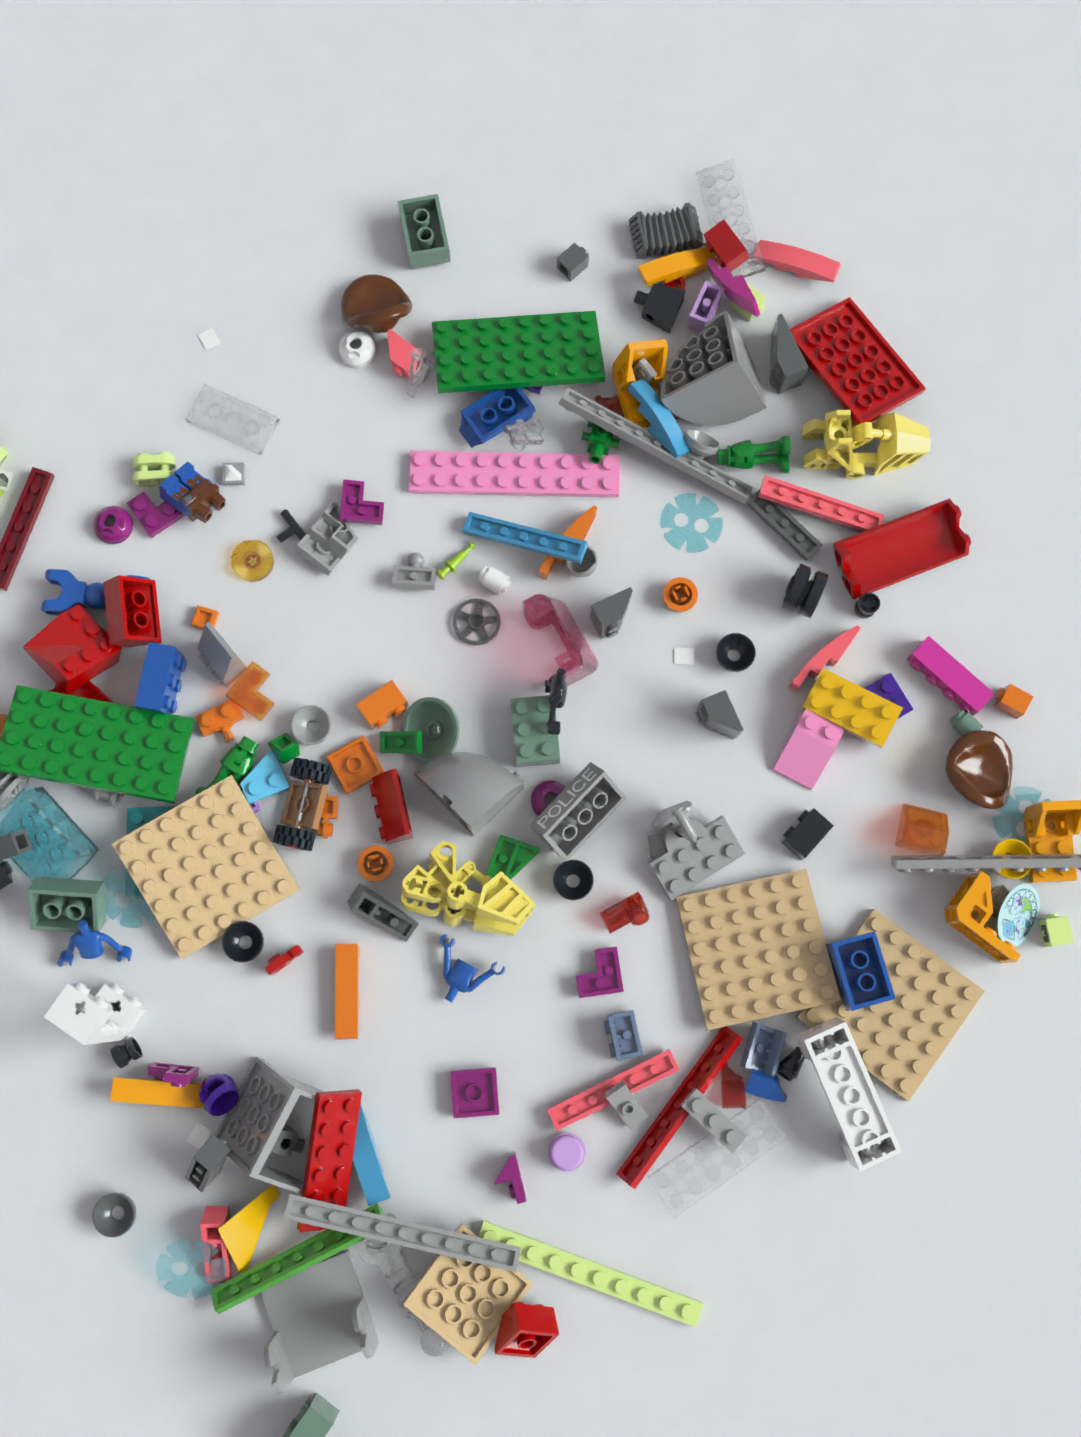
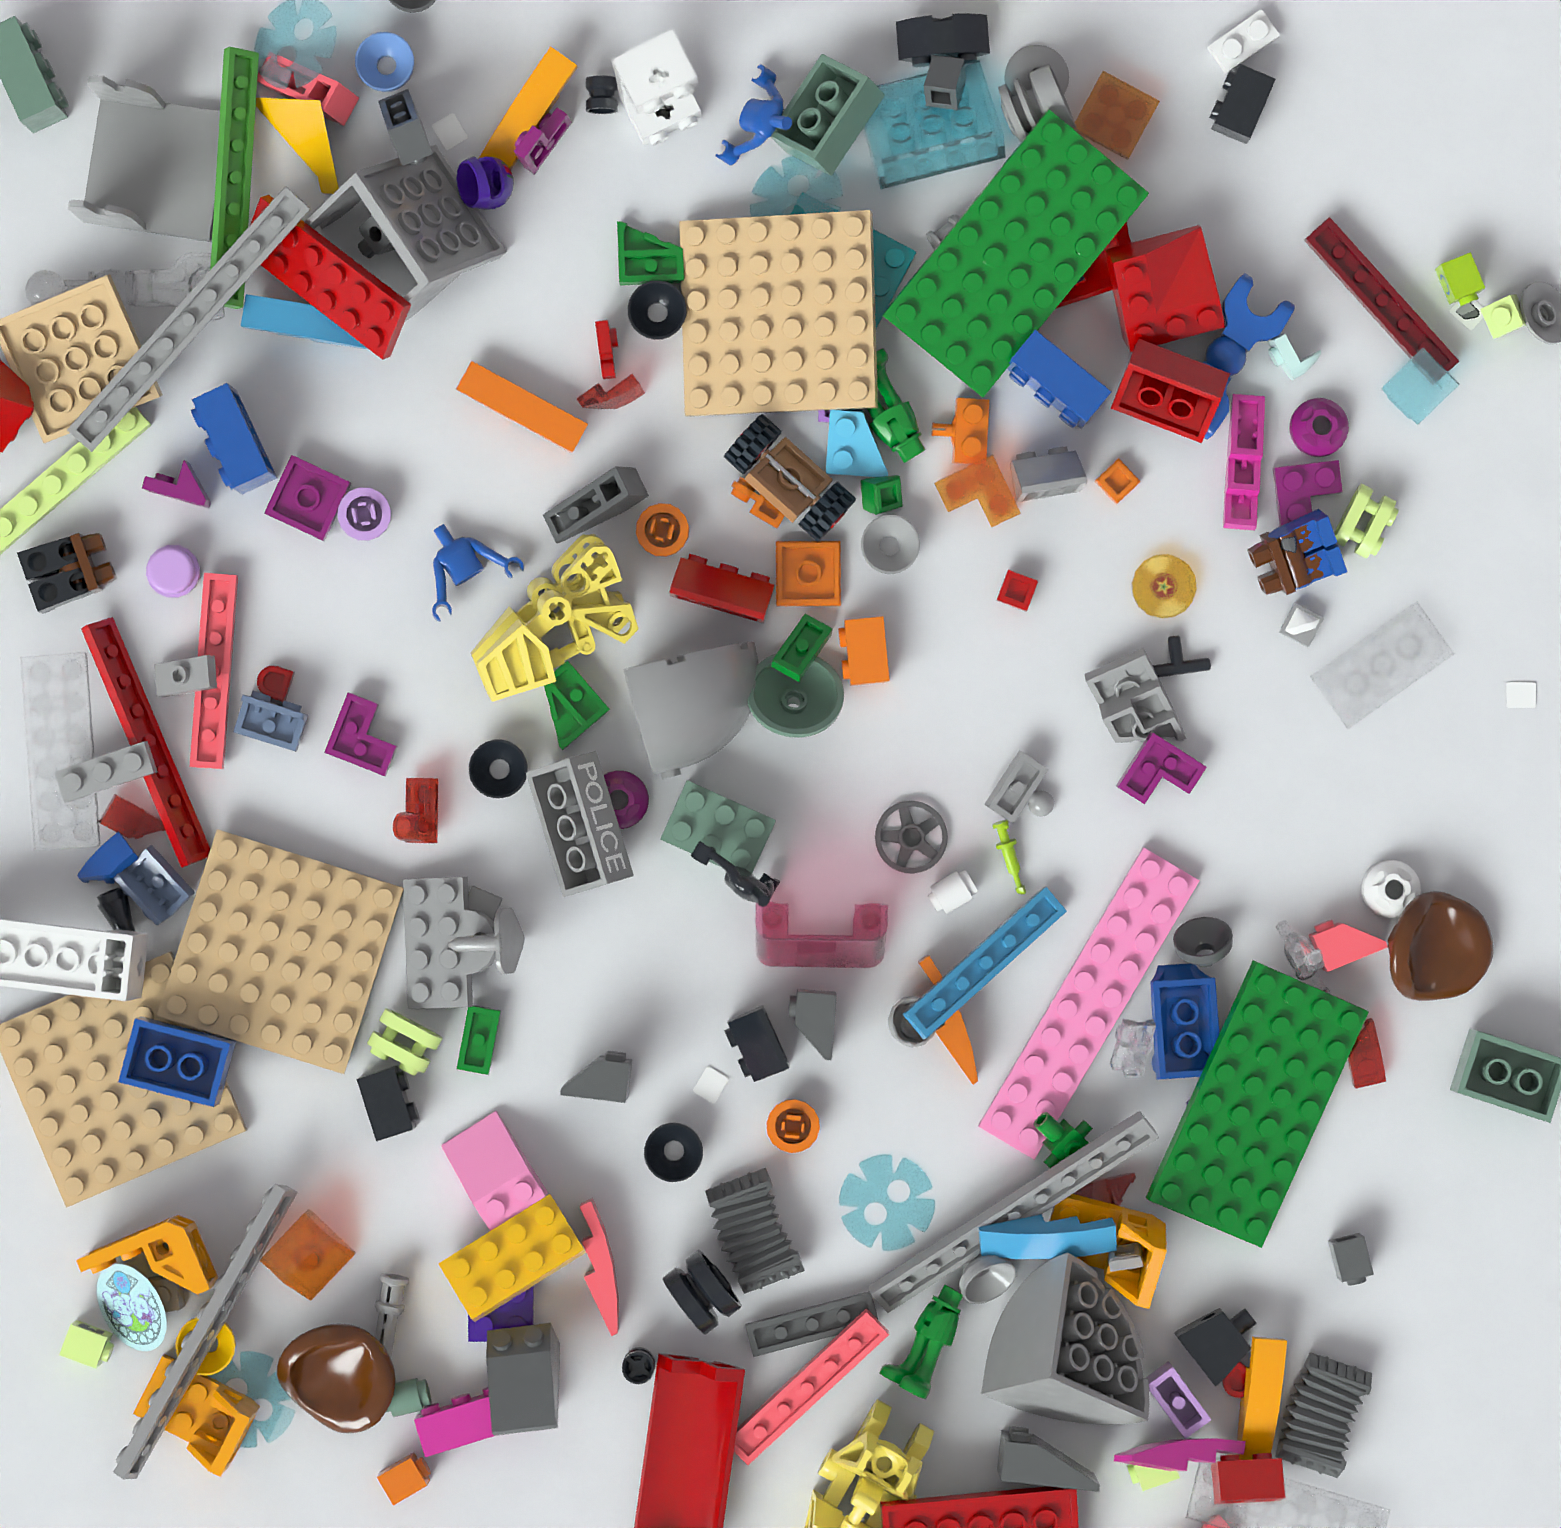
camera: 120 degrees right, 10 degrees up
(58, 480) = (1419, 386): none -> clear light blue piece
(80, 562) = (1284, 355): none -> light aqua plate
(156, 554) = (1243, 462): none -> dark pink slope
(166, 1211) = (380, 46): none -> medium blue piece
(214, 966) = (647, 258): none -> green wing
(299, 639) = (1017, 590): none -> red plate
(308, 935) = (616, 397): none -> clear red slope
(438, 430) = (1200, 935): none -> dark grey piece
(459, 310) = (1366, 1058): none -> clear red slope
(463, 1161) = (232, 439): none -> blue brick
(465, 1051) = (364, 514): none -> lavender piece
(595, 1221) = (75, 566): none -> black hips
(598, 1047) = (275, 682): none -> red tile
(645, 638) = (757, 1043): none -> black slope
(738, 801) = (478, 1039): none -> green plate
(753, 585) = (752, 1231): none -> dark grey piece
(774, 834) = (385, 1045): none -> yellowish green brick
(917, 661) = (523, 1378): none -> dark grey slope
(922, 765) = (389, 1308): none -> light grey pin

